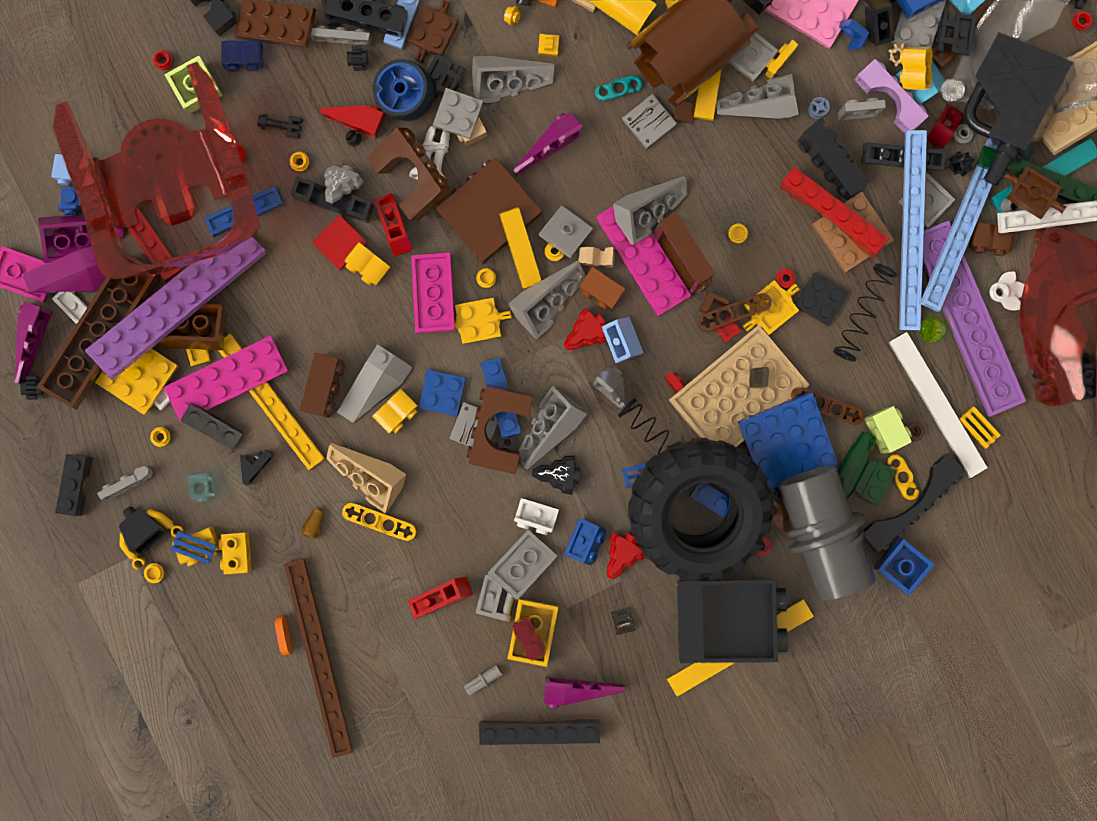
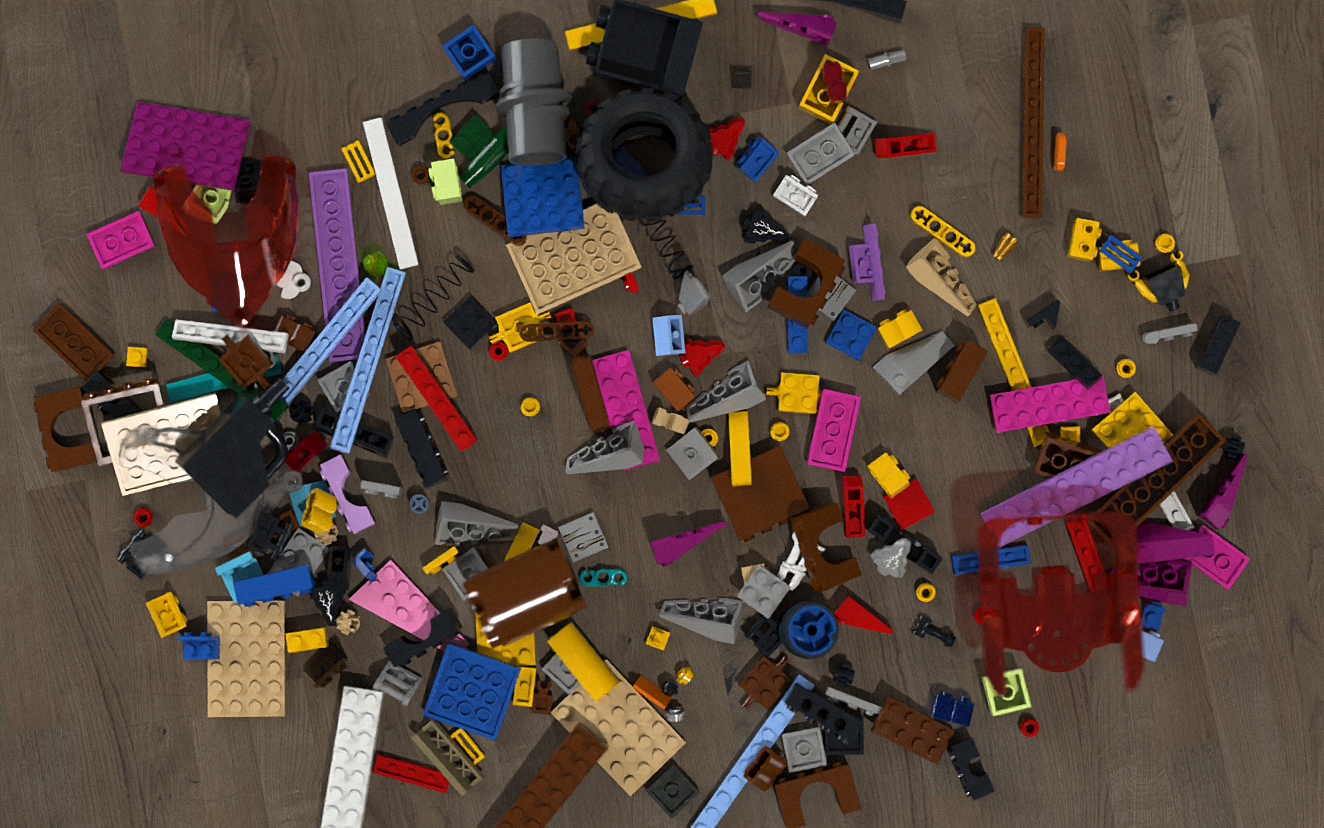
camera: 160 degrees left, 0 degrees up
(194, 480) = (1094, 316): clear light blue brick -> none
(356, 140) = (866, 597): black hinge -> none
(445, 467) = (867, 264): none -> medium lavender bracket
(759, 377) = (552, 263): clear smoke slope -> none

